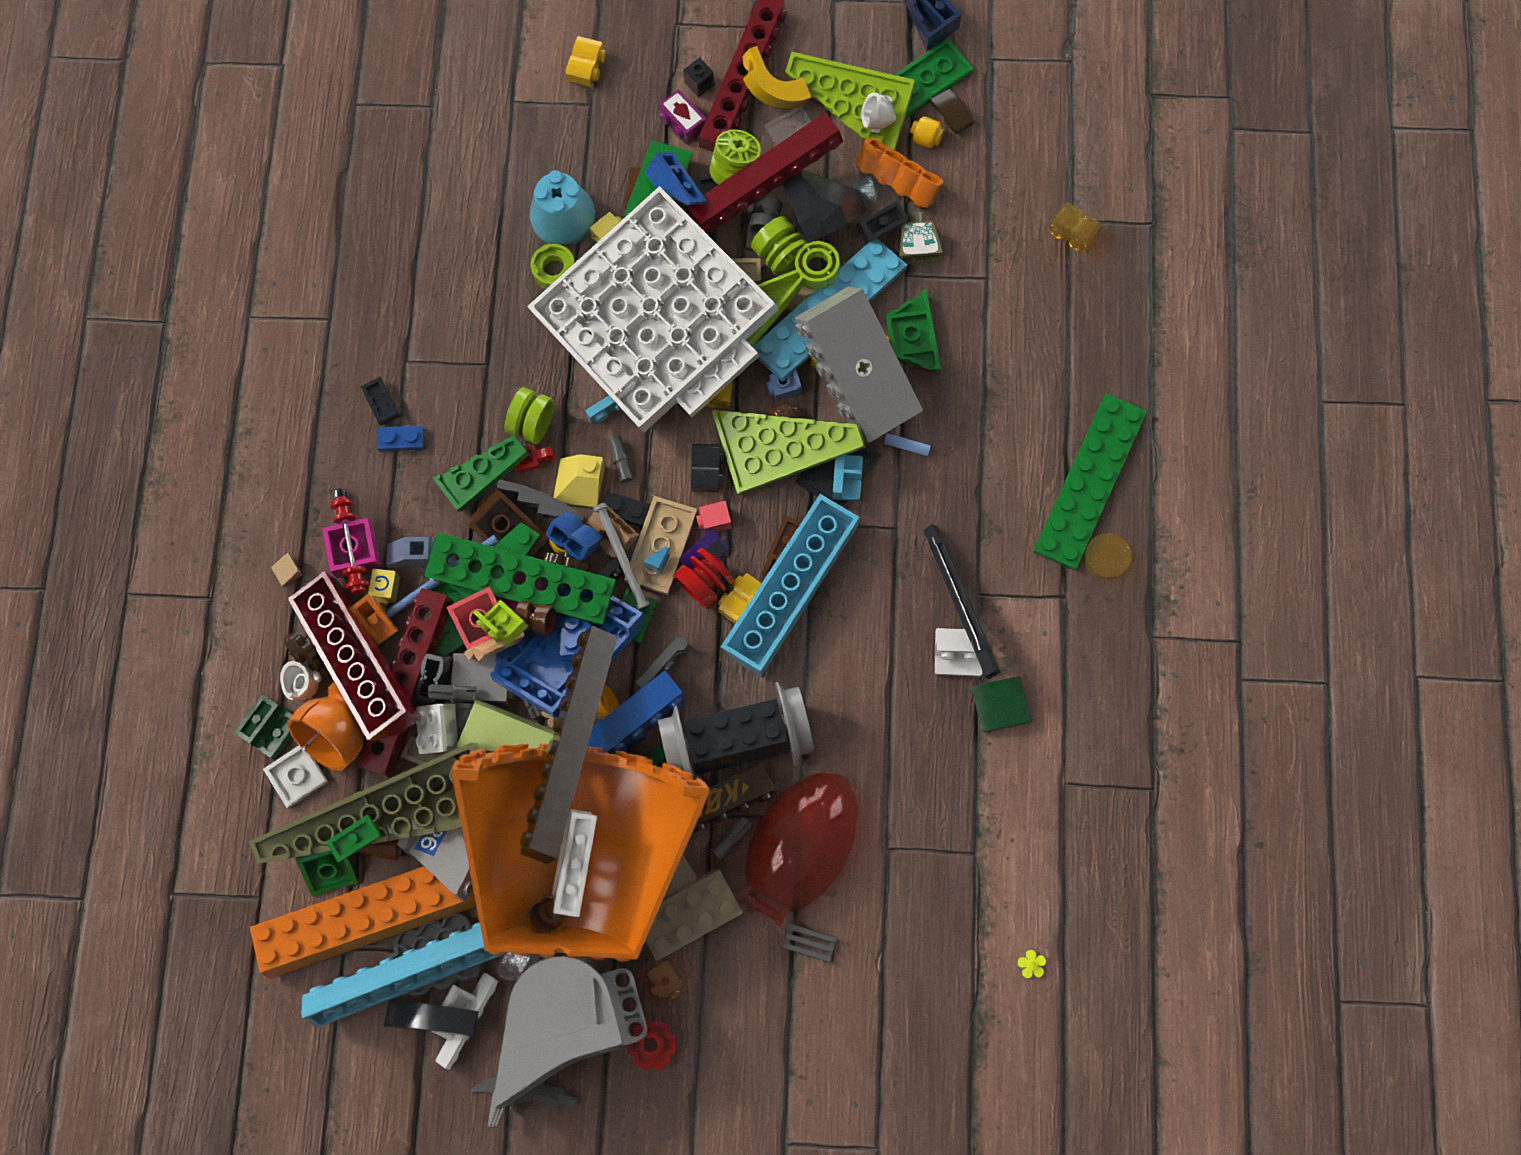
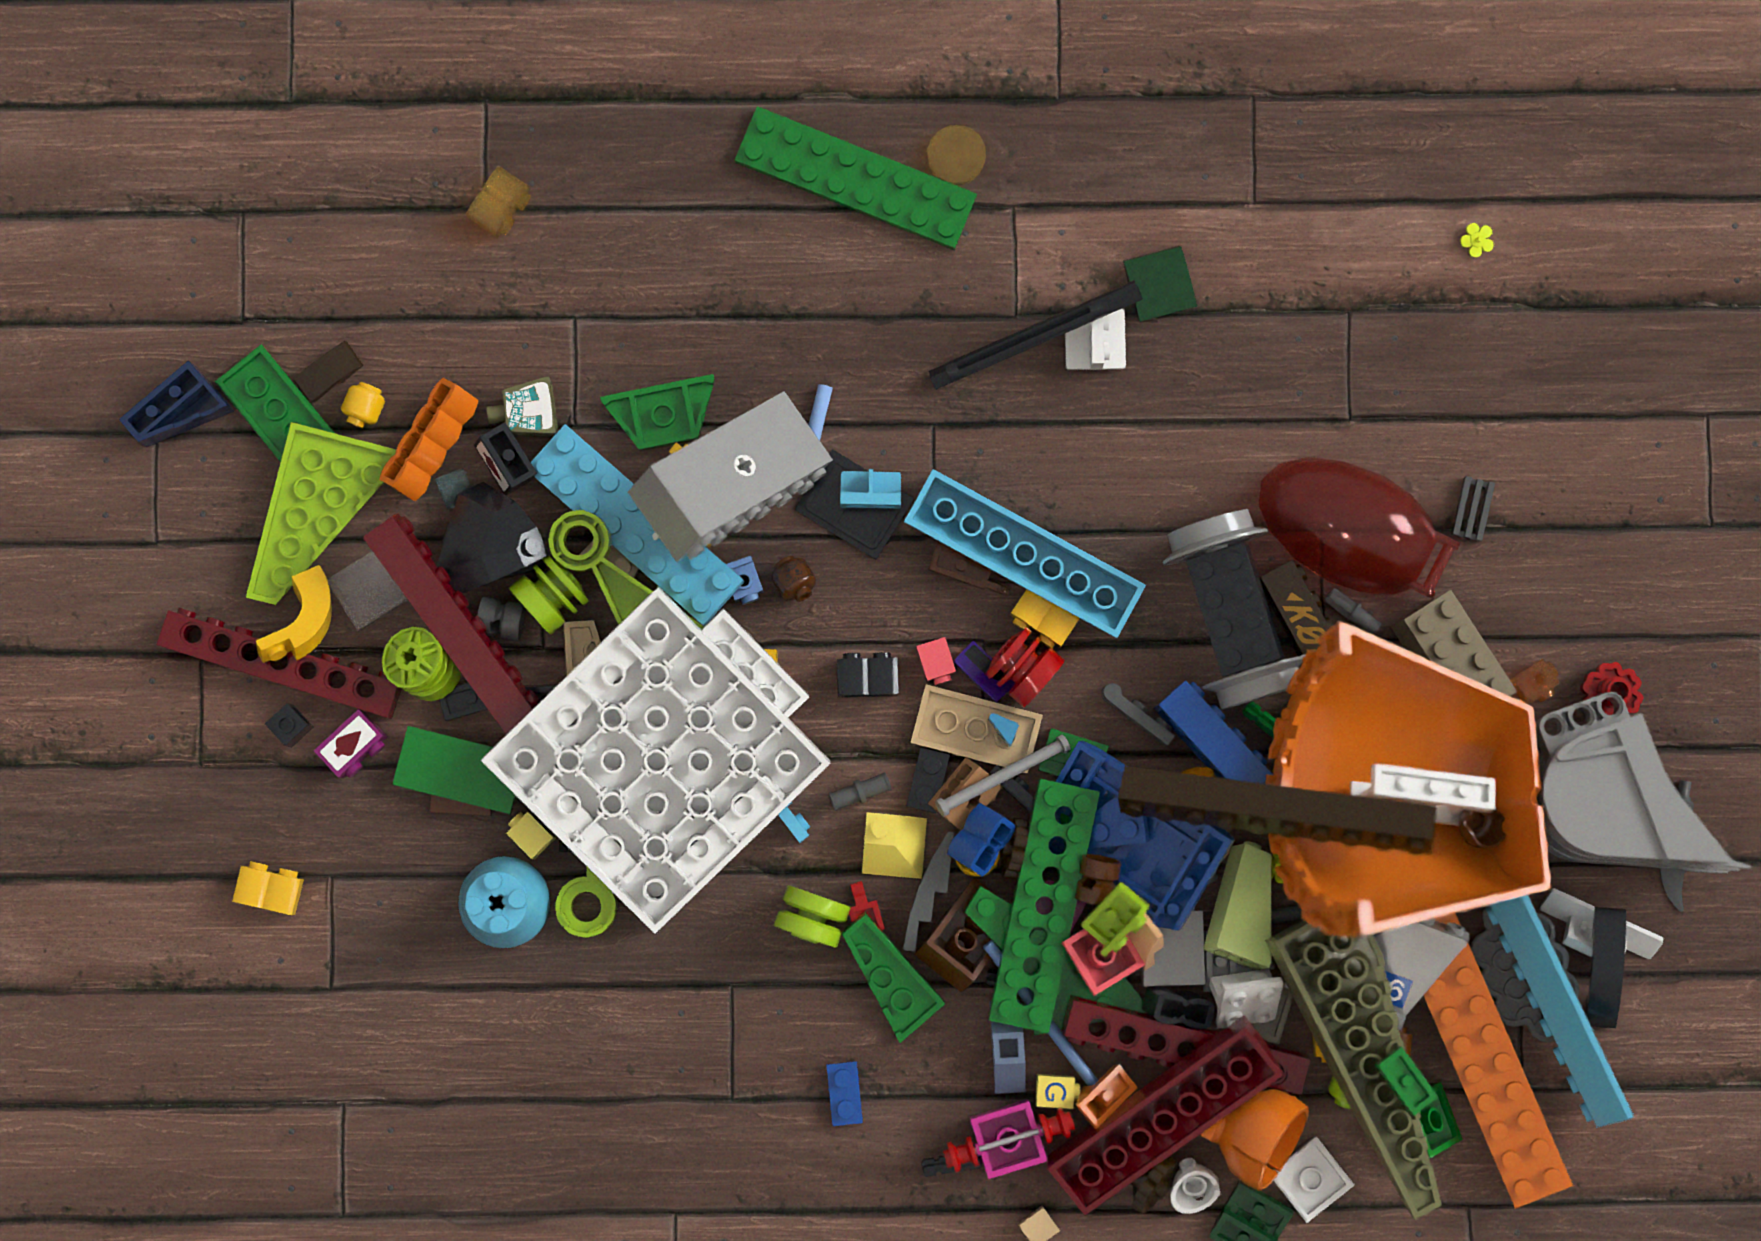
camera: 100 degrees left, 10 degrees up
(380, 401) = (794, 1127): black plate -> none
(452, 692) = (1201, 979): dark grey axle -> none
(671, 176) = (464, 744): blue slope -> none
(773, 447) = (840, 586): lime wing -> none
(877, 112) = (344, 471): white helmet -> none

